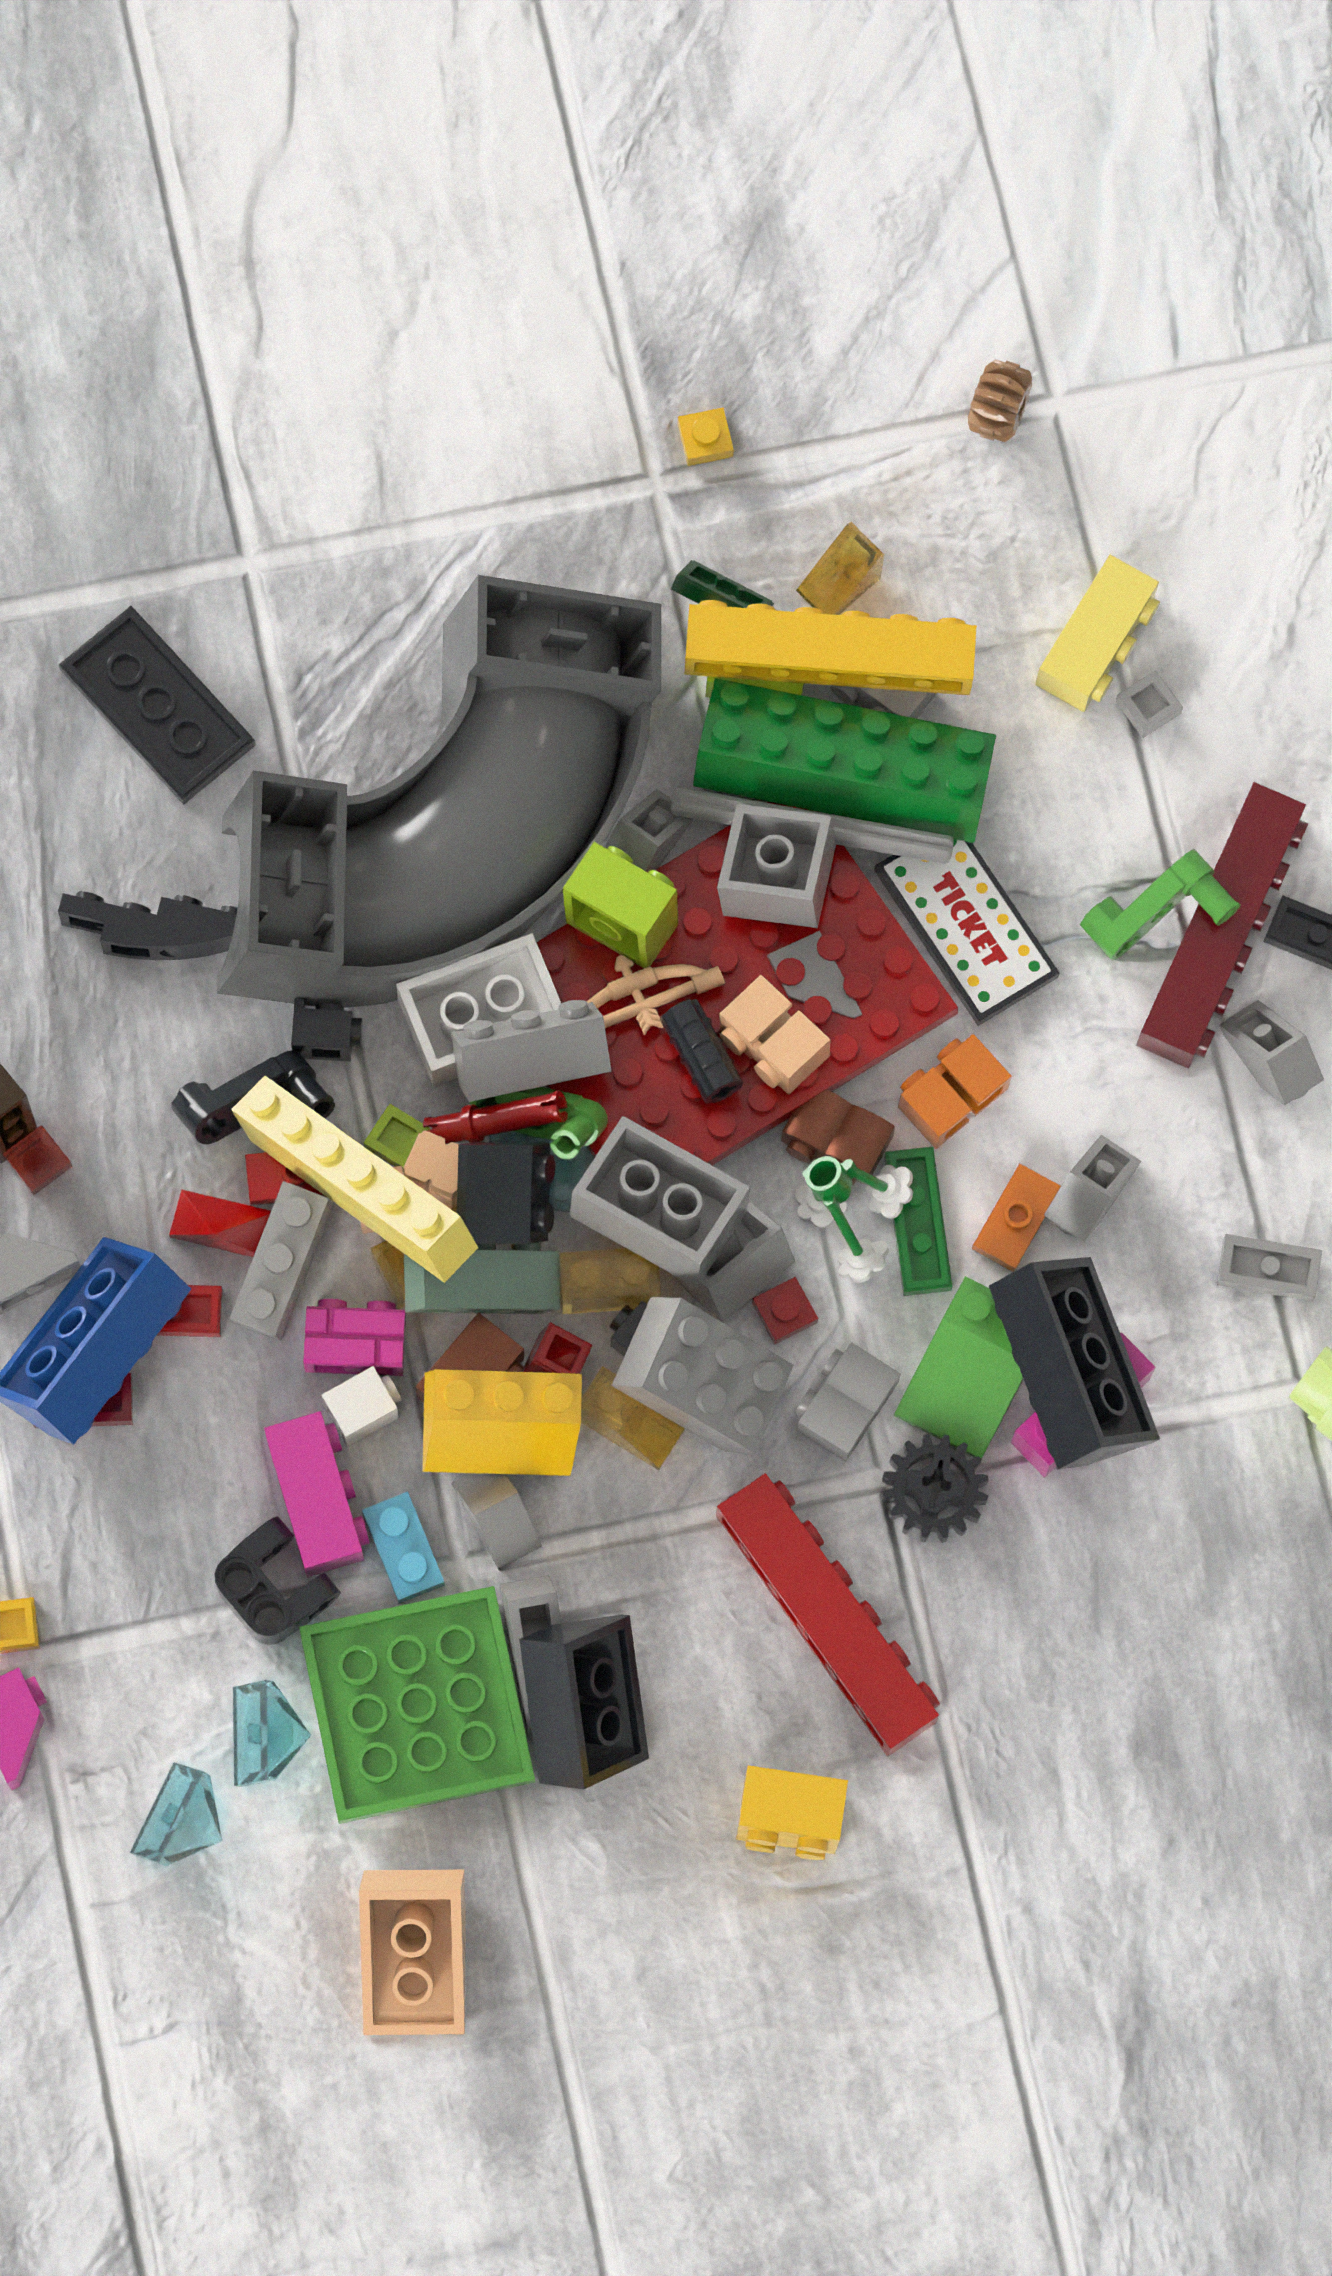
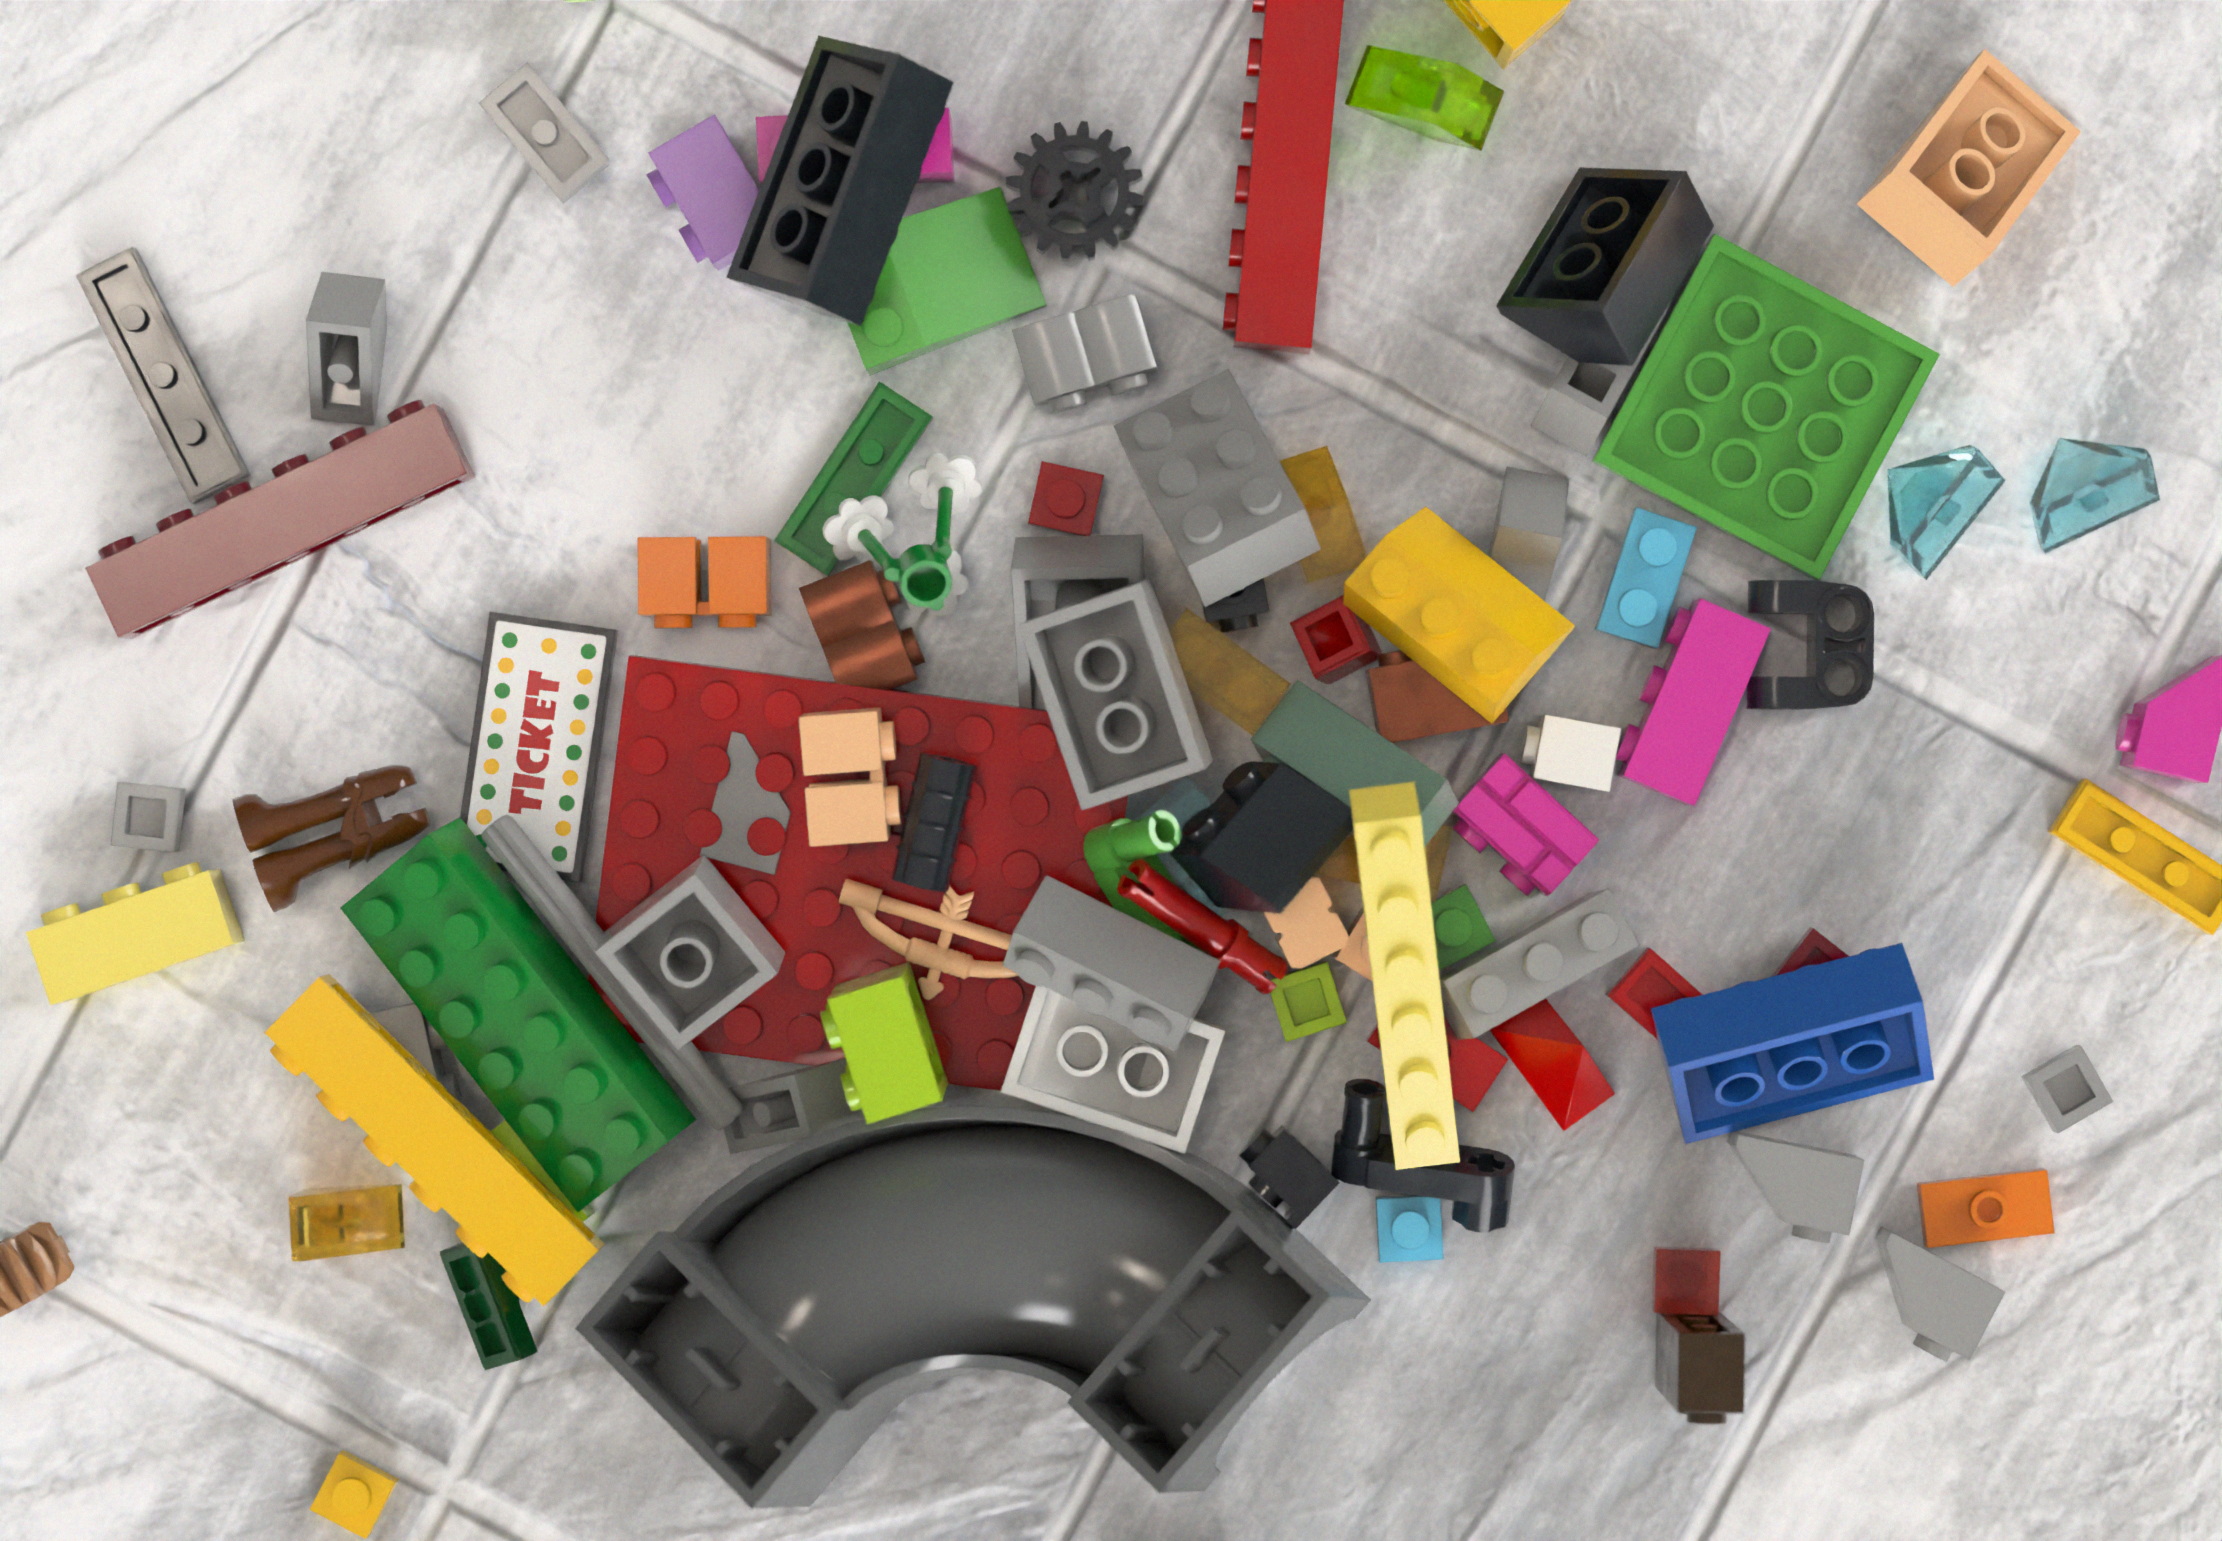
camera: 135 degrees left, 15 degrees up
(131, 931) = (1350, 1408): black slope -> none
(225, 1058) = (1409, 1228): none -> medium azure plate
(346, 1252) = (1458, 927): none -> bright green plate
(776, 1716) = (1425, 96): none -> clear neon green slope
(1016, 1218) = (752, 398): orange plate -> none
(1020, 789) = (360, 838): none -> reddish brown piece
(1091, 1188) = (651, 360): light grey slope -> none
(1121, 929) = (393, 607): bright green beam -> none
(1149, 1312) = (710, 188): none -> medium lavender brick

